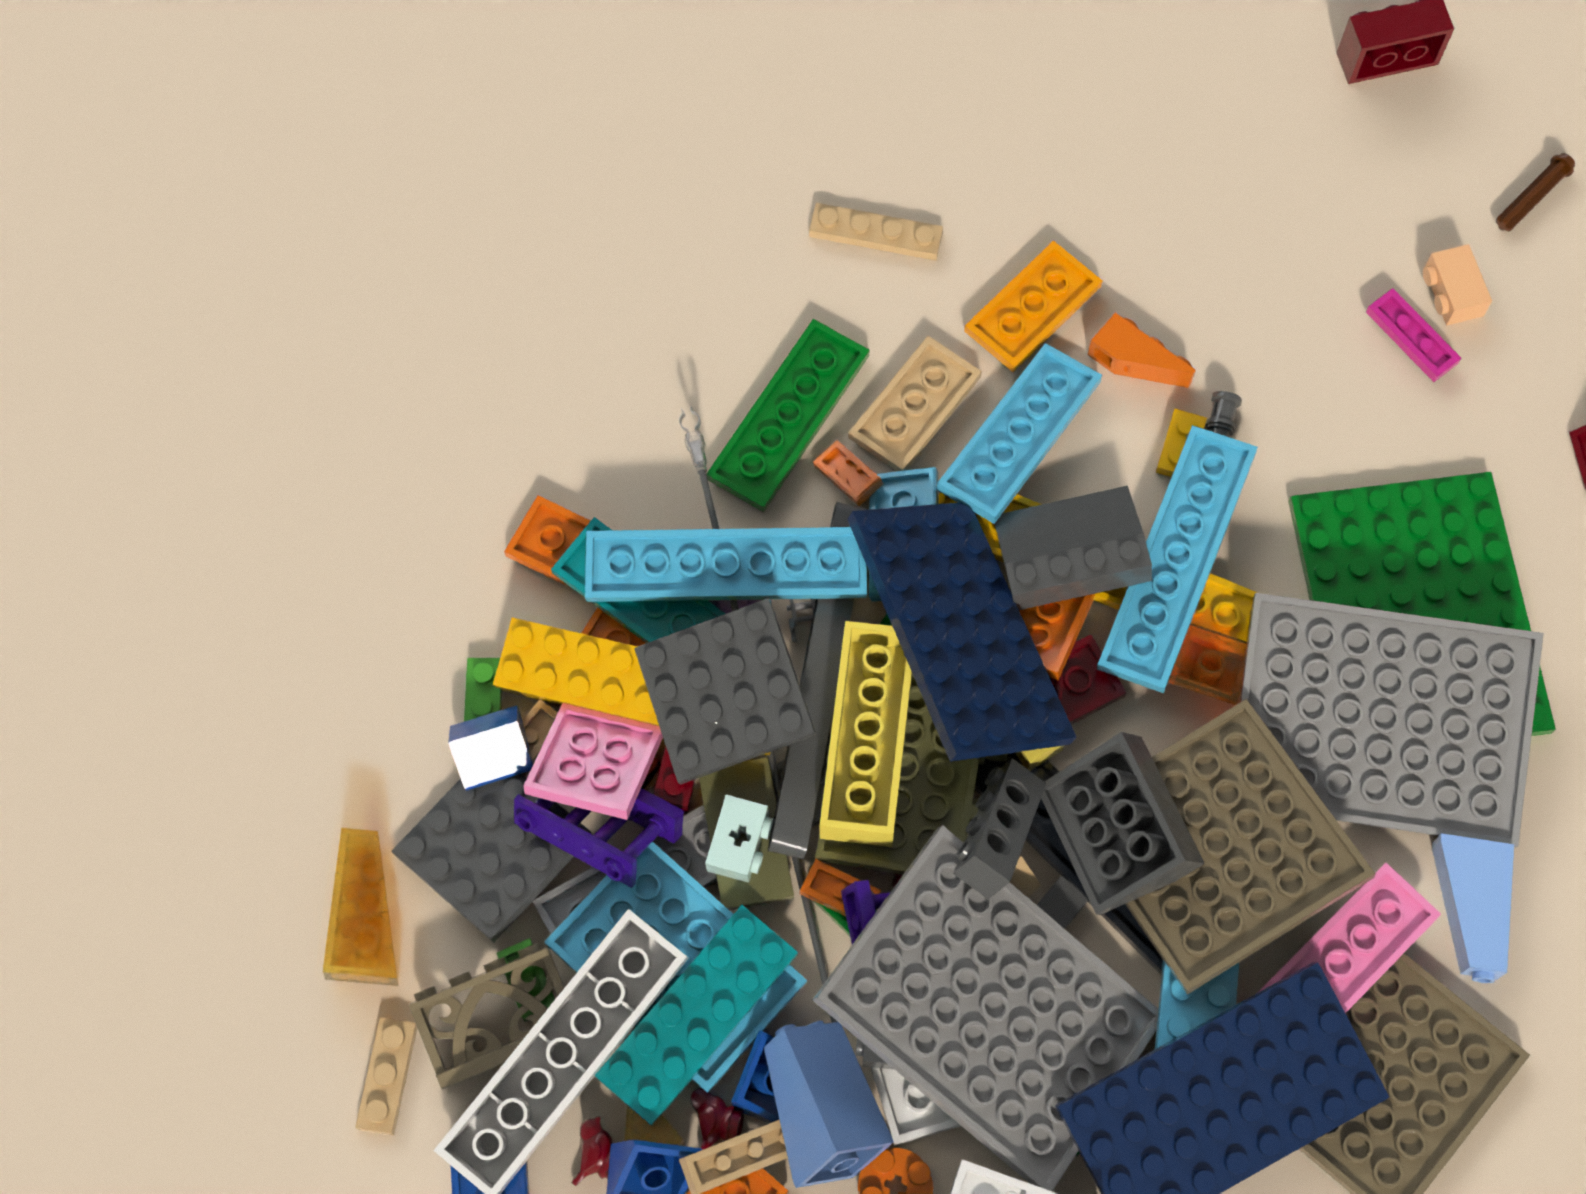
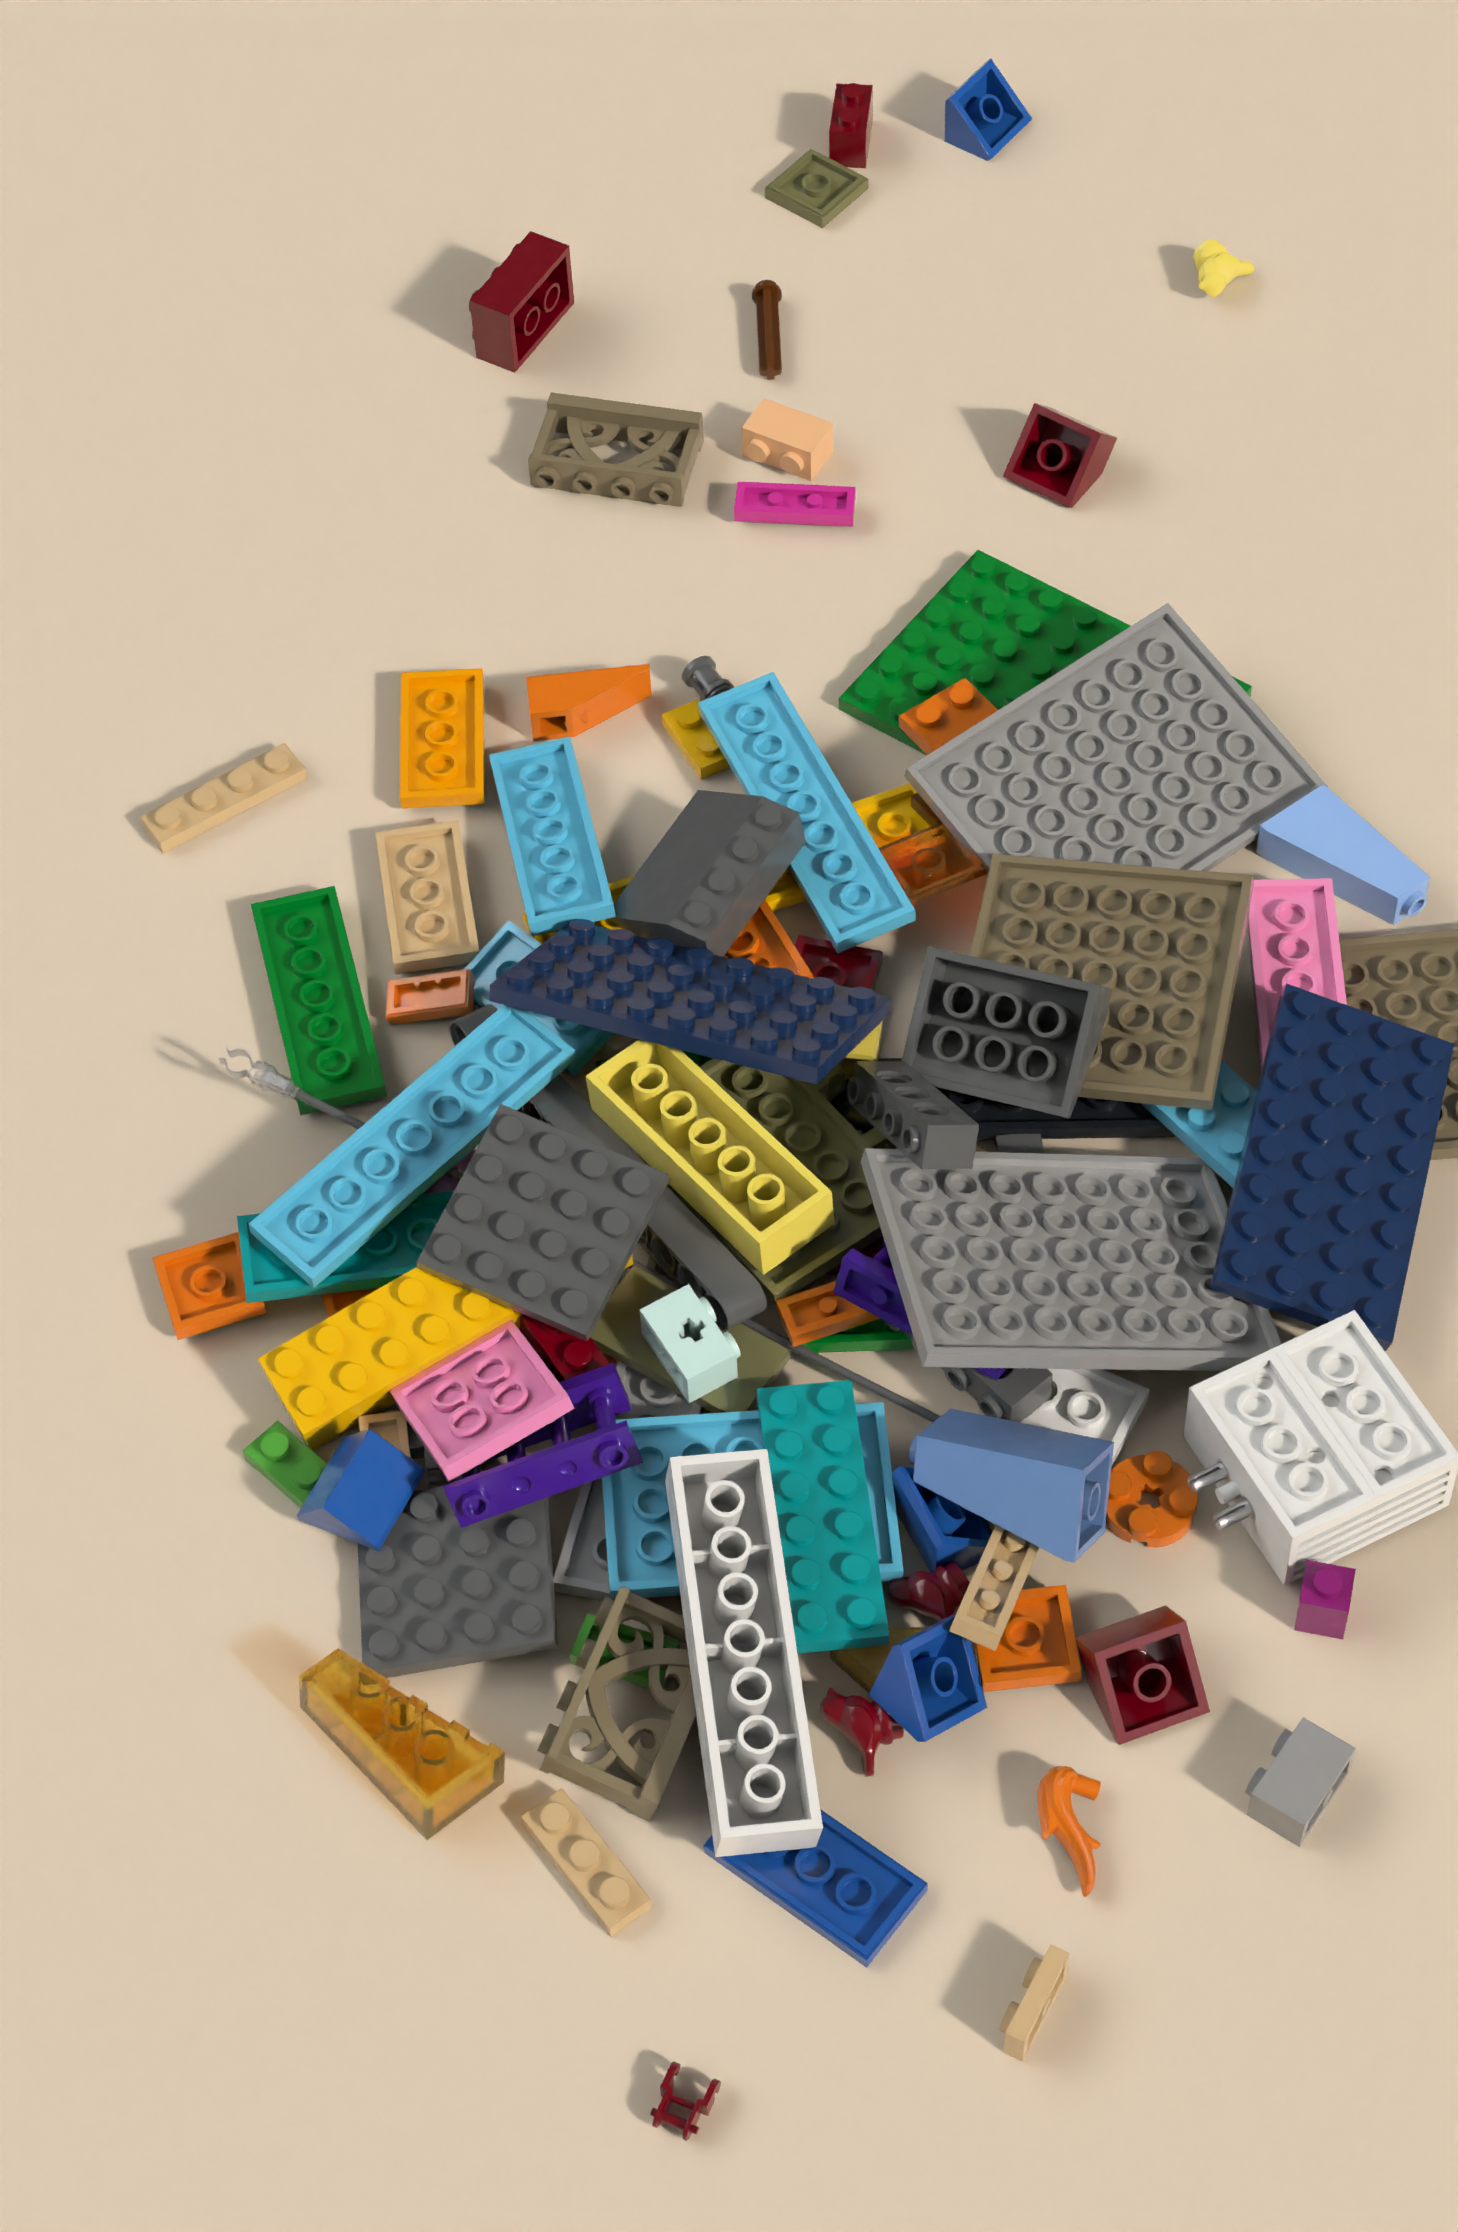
camera: 45 degrees left, 15 degrees down
(1333, 224) = (595, 422): none -> dark tan fence
(1335, 577) = (945, 715): none -> orange plate

